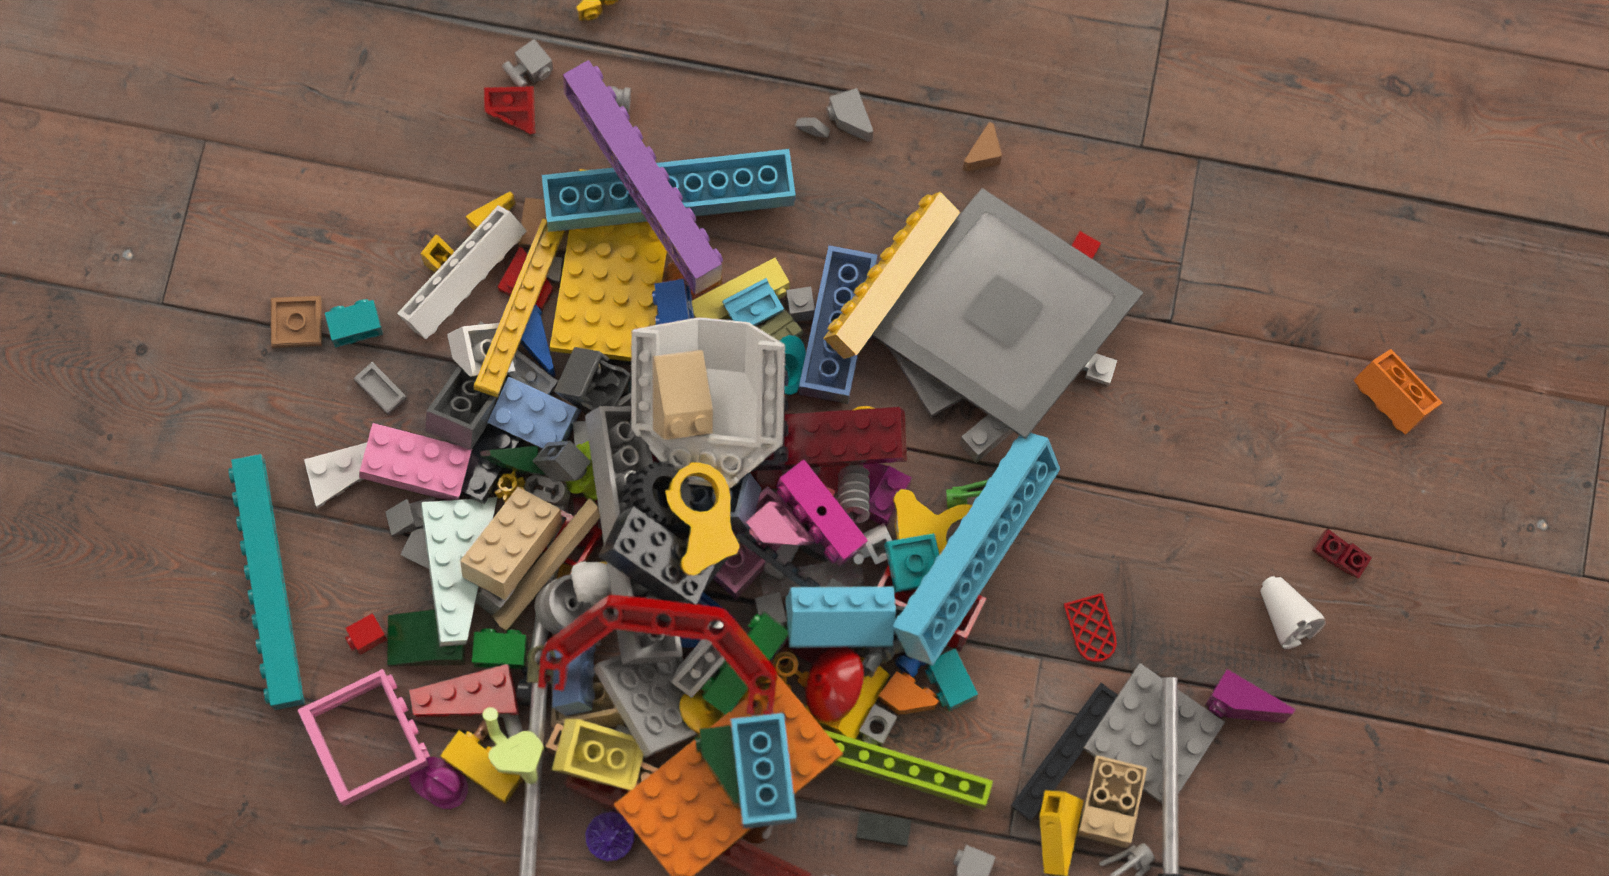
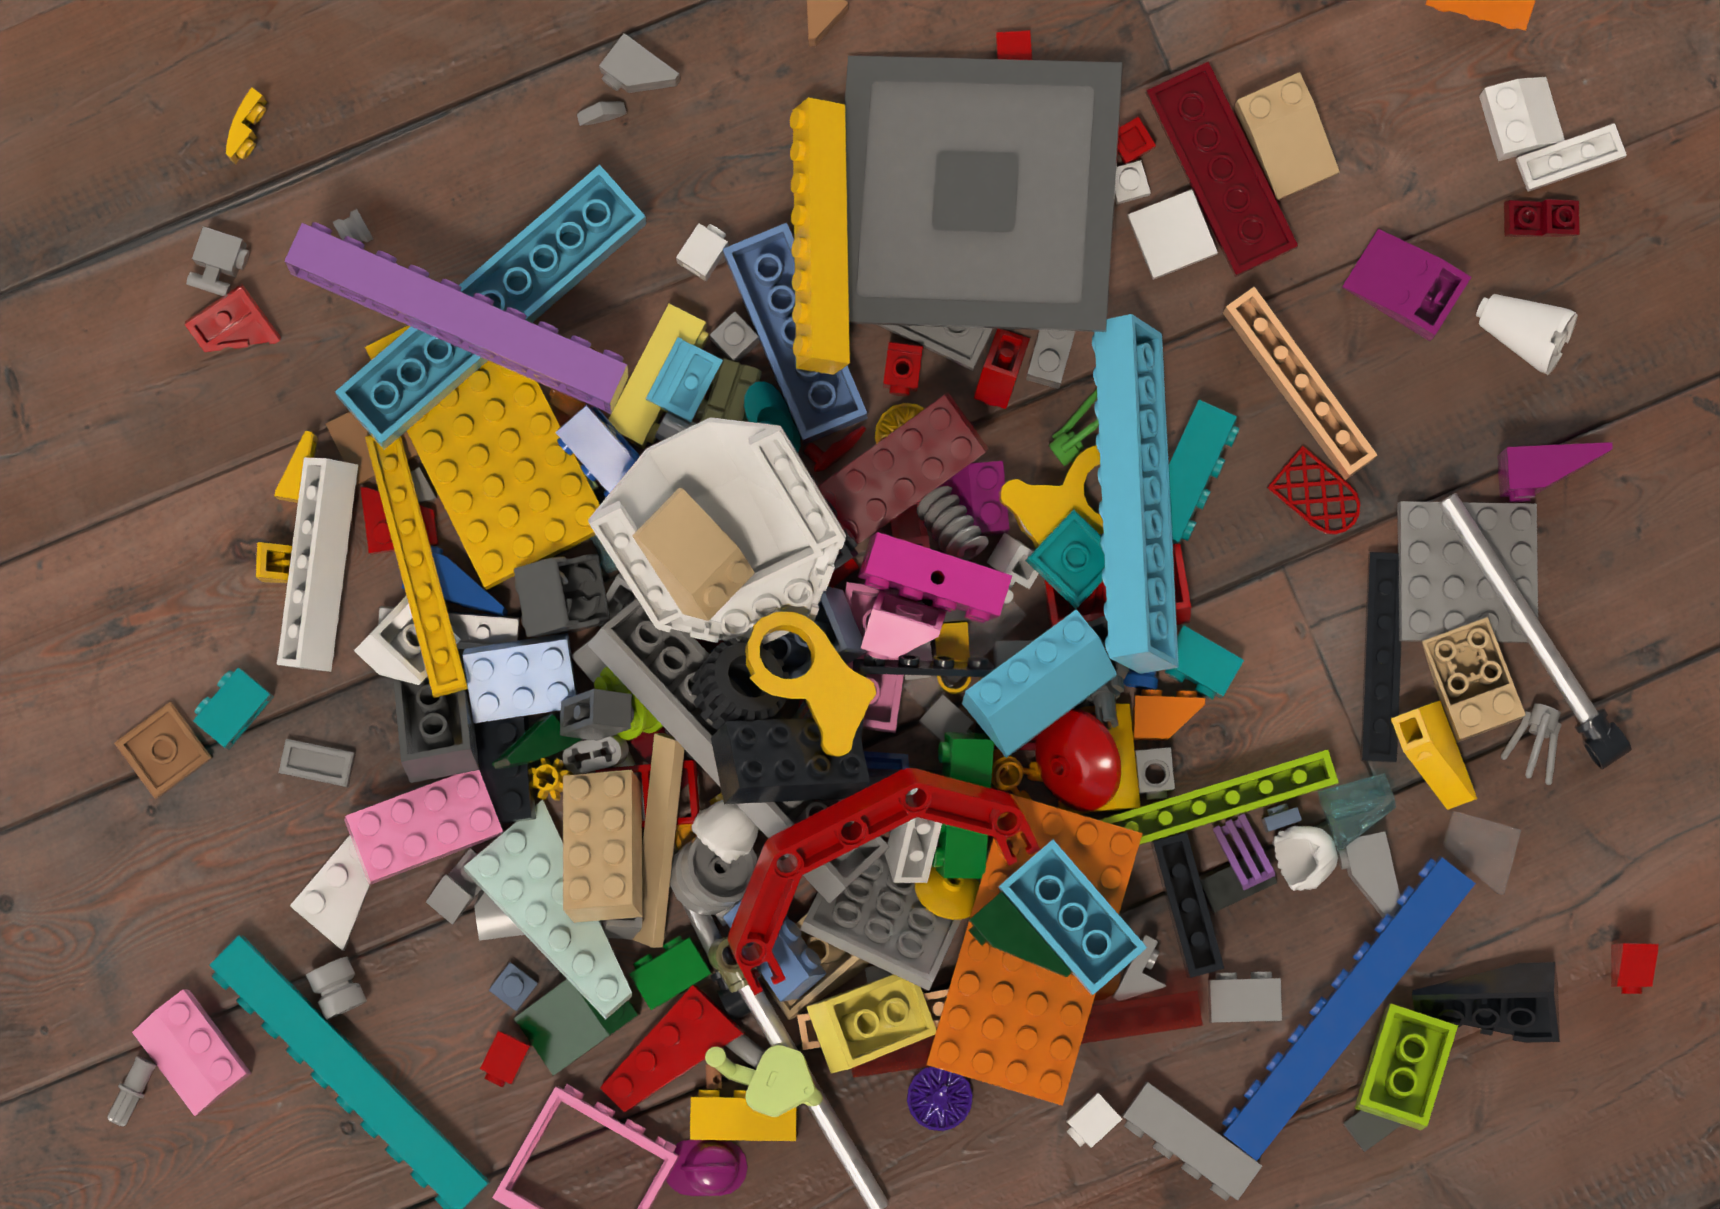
camera: 30 degrees left, 10 degrees up
(133, 505) = (131, 1091): none -> light grey axle
(185, 505) = (191, 1051): none -> bright pink slope
(296, 523) = (336, 988): none -> light grey wheel
(401, 596) = (513, 986): none -> sand blue plate
(778, 845) = (1134, 981): none -> light grey slope
(804, 408) = (835, 452): none -> red bar
(808, 564) = (953, 642): none -> yellow piece
(815, 242) = (703, 251): none -> white brick
(841, 820) = (1187, 905): none -> black brick
(896, 380) = (909, 355): none -> red brick
(901, 794) = (1232, 827): none -> medium lavender tile
(935, 839) = (1305, 856): none -> white hair
(936, 806) = (1280, 817): none -> sand blue plate
(948, 426) = (1001, 368): none -> red slope
(987, 831) = (1356, 807): none -> clear light blue wing
(1028, 558) = (1195, 463): none -> teal brick
(1106, 415) = (1172, 234): none -> white tile
(1119, 345) = (1134, 141): none -> red plate
(1125, 552) = (1299, 383): none -> light nougat brick
(1163, 397) = (1221, 169): none -> dark red plate
(1216, 403) = (1287, 136): none -> tan slope
(1232, 537) = (1406, 283): none -> magenta slope
(1369, 485) = (1521, 117): none -> white slope
(1384, 529) = (1571, 157): none -> white plate

